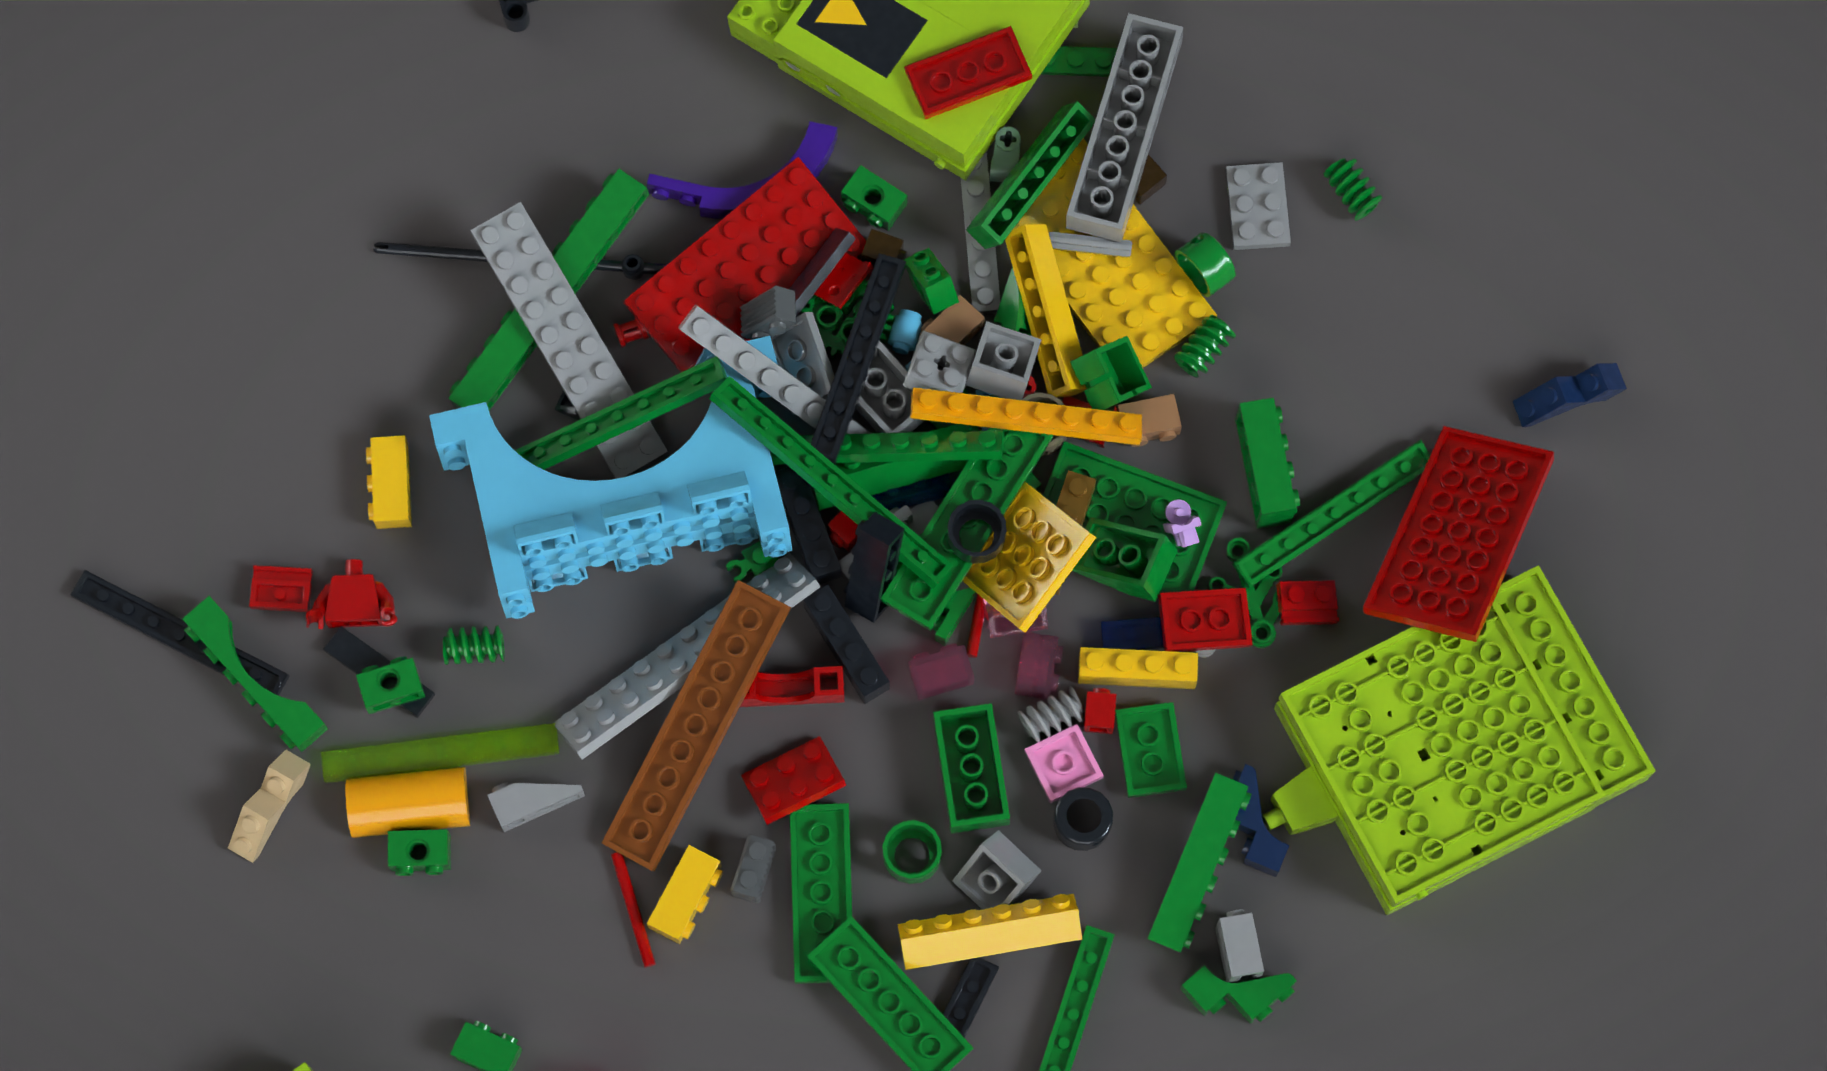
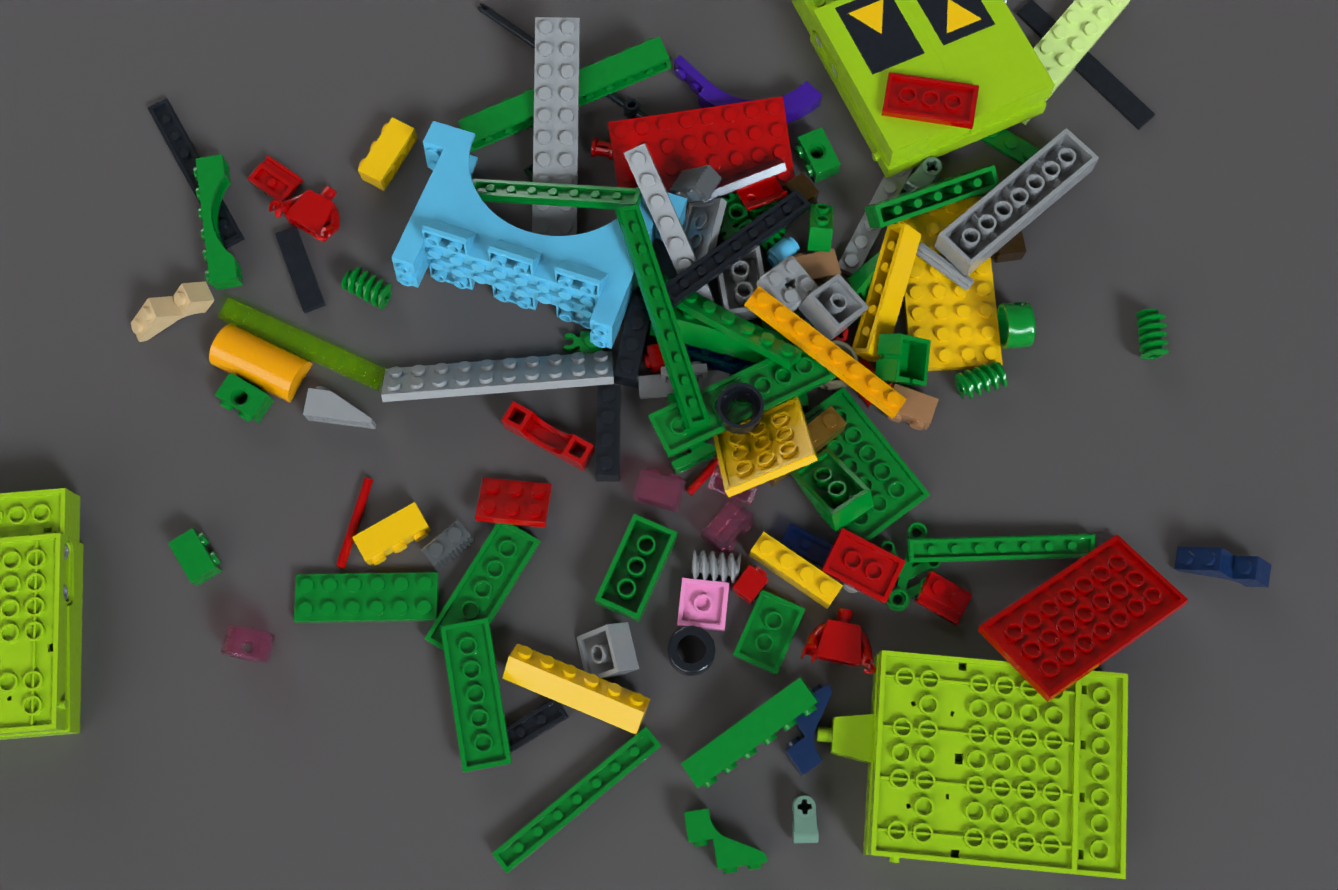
camera: 35 degrees right, 0 degrees up
(406, 690) = (306, 288): green brick -> none
(696, 725) = (471, 424): dark orange plate -> none
(701, 979) = (366, 597): none -> green plate
(873, 565) = (655, 388): black brick -> none
(909, 830) = (550, 585): green piece -> none
(1182, 523) = (887, 488): lavender hips -> none
(1232, 714) = (840, 643): none -> red torso
(1239, 947) = (741, 811): light grey piece -> none
(1258, 206) = (1077, 309): light grey plate -> none
(1266, 462) = (973, 484): green brick -> none
(1310, 923) = (804, 825): none -> sand green piece

